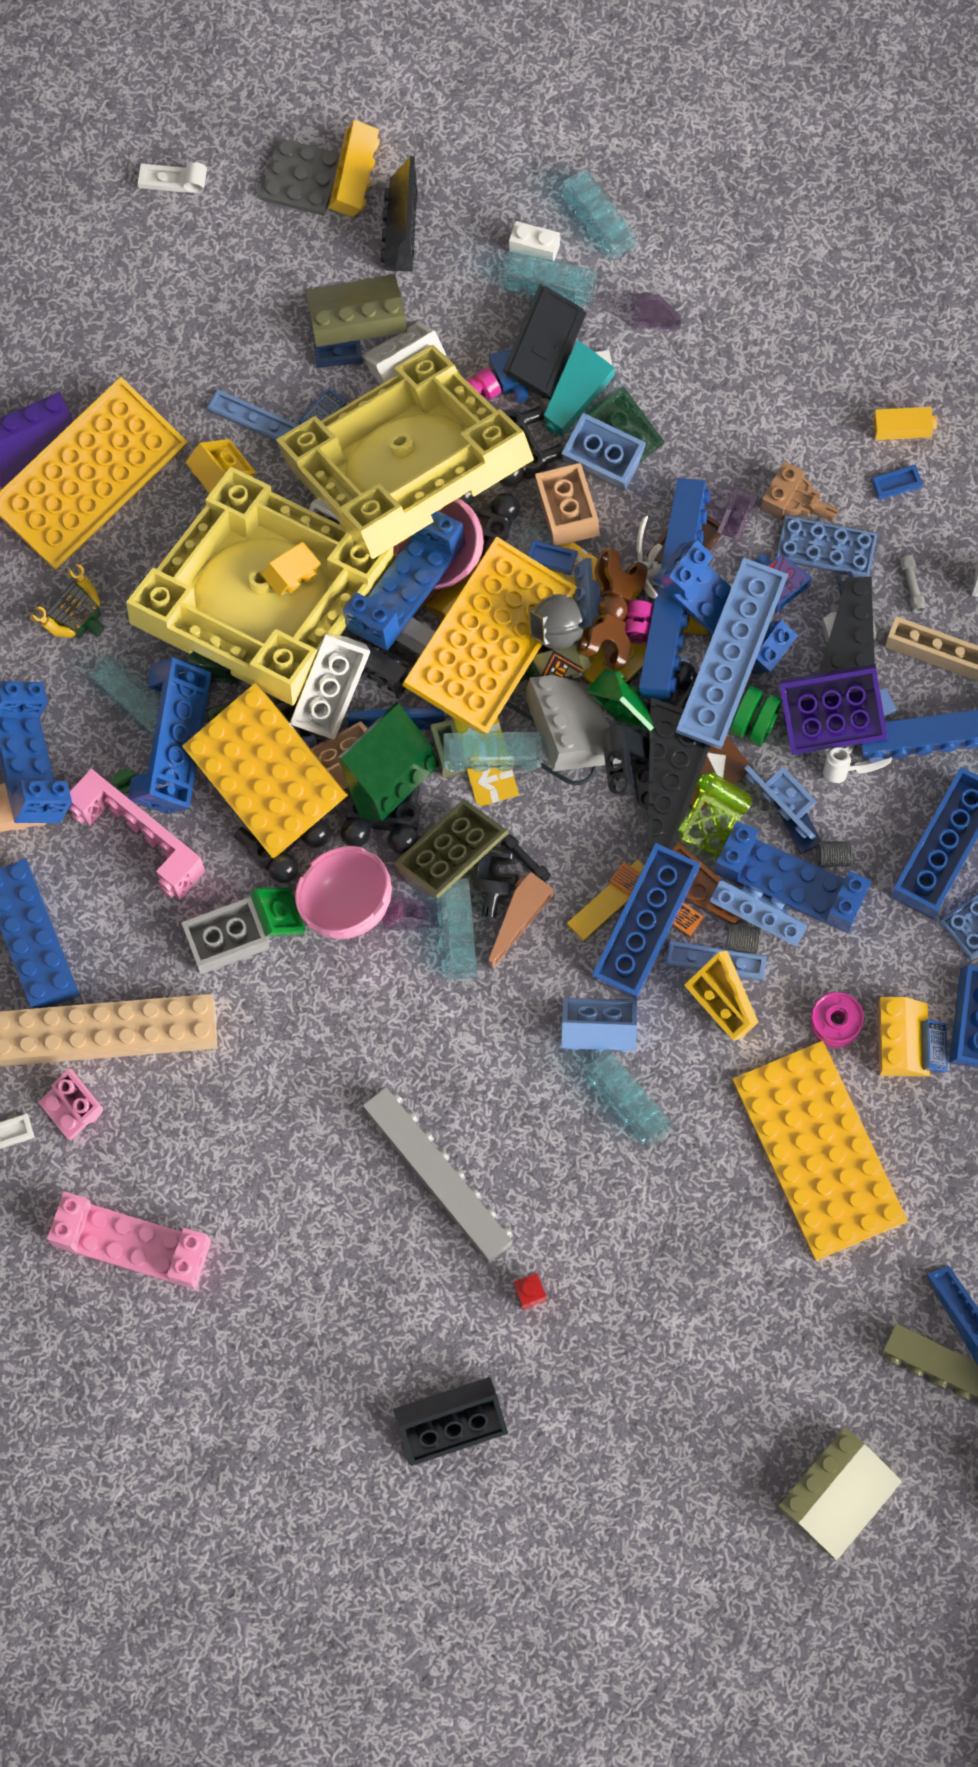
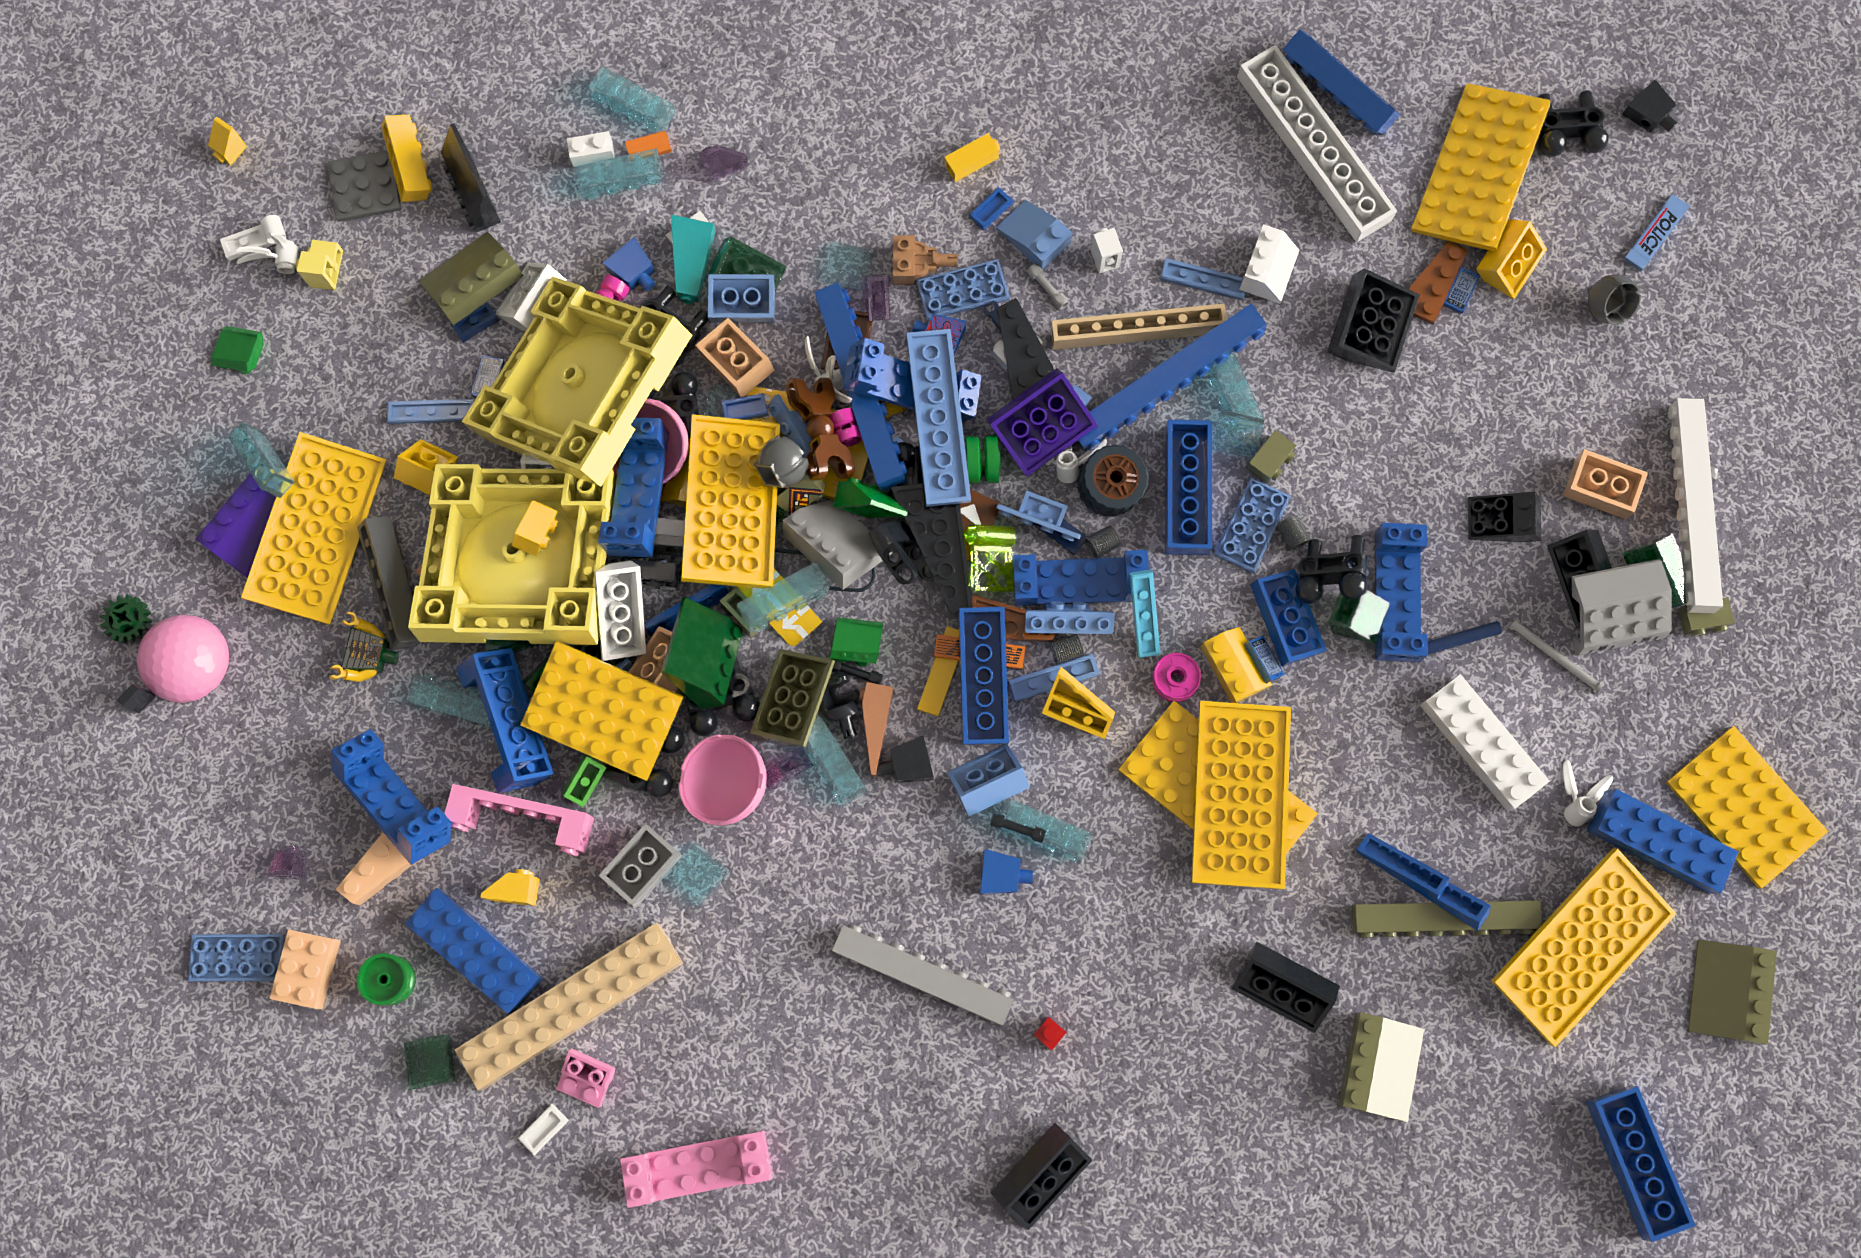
camera: 30 degrees left, 5 degrees up
(72, 385) = (261, 460): none -> clear light blue brick
(96, 895) = (514, 888): none -> yellow slope
(104, 274) = (237, 349): none -> green slope
(122, 780) = (483, 777): green plate -> none
(131, 554) = (389, 579): none -> dark grey brick
(193, 75) = (225, 142): none -> yellow slope
(194, 206) = (285, 254): none -> white plant
(214, 829) = (583, 780): none -> bright green brick
(221, 231) = (320, 264): none -> light yellow brick
(274, 972) = (697, 874): none -> clear light blue tile
(277, 911) = (673, 823): green tile -> none
(531, 968) = (909, 762): none -> black torso
(541, 829) = (856, 641): none -> green slope
(544, 342) = (644, 229): black piece -> none
(565, 1119) = (1002, 874): none -> blue torso
(587, 1065) = (999, 821): none -> black bar
(603, 264) = (654, 141): none -> orange tile
(724, 469) = (846, 265): none -> clear light blue tile
(785, 1368) = (1286, 987): none -> black slope
(836, 941) = (1144, 613): none -> medium azure tile
(839, 1162) = (1241, 795): none -> yellow plate
(887, 786) = (1121, 466): none -> wheel
(928, 527) = (1035, 233): none -> medium blue slope

